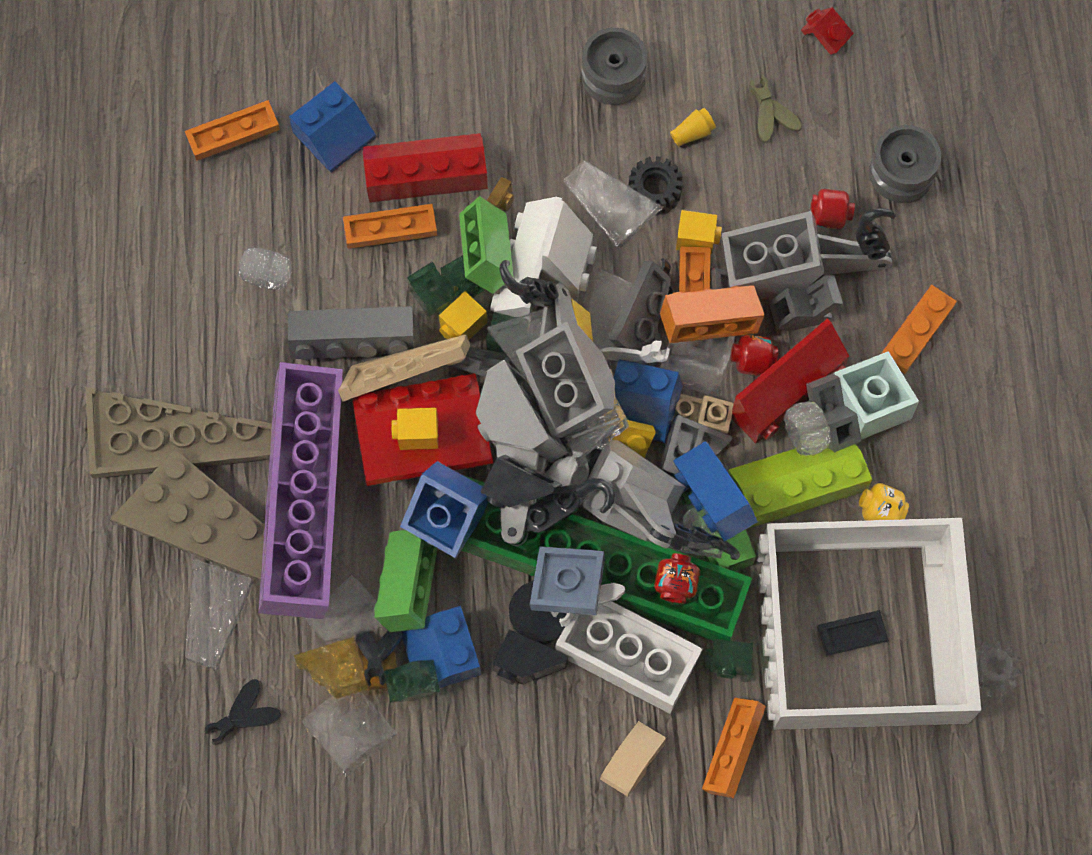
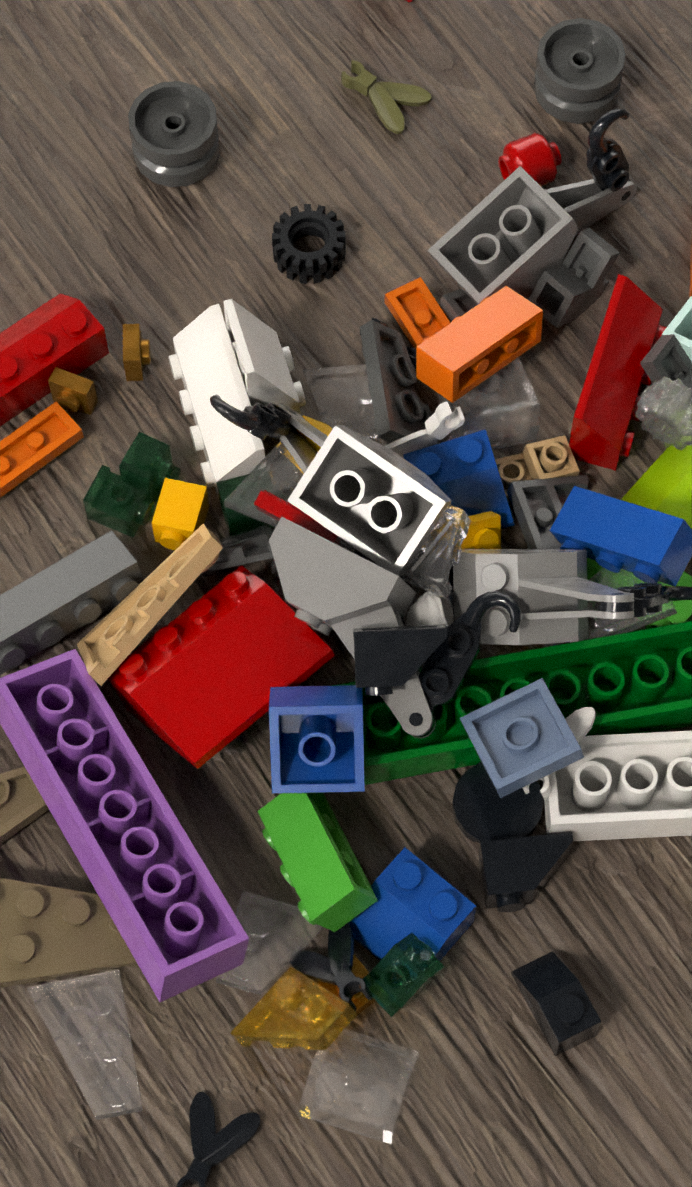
camera: 30 degrees left, 5 degrees down
(416, 428) = (220, 662): yellow brick -> none
(446, 203) = (73, 391): none -> pearl gold plate
(485, 243) = (158, 409): bright green brick -> none
(495, 752) = (557, 1002): none -> black slope
(509, 348) = (277, 507): none -> red tile
(611, 203) = (271, 287): clear wing -> none
(677, 578) = (646, 662): red head -> none
(695, 126) = (311, 155): yellow cone -> none
(698, 230) = (392, 266): yellow brick -> none
(753, 354) = (554, 368): red head -> none

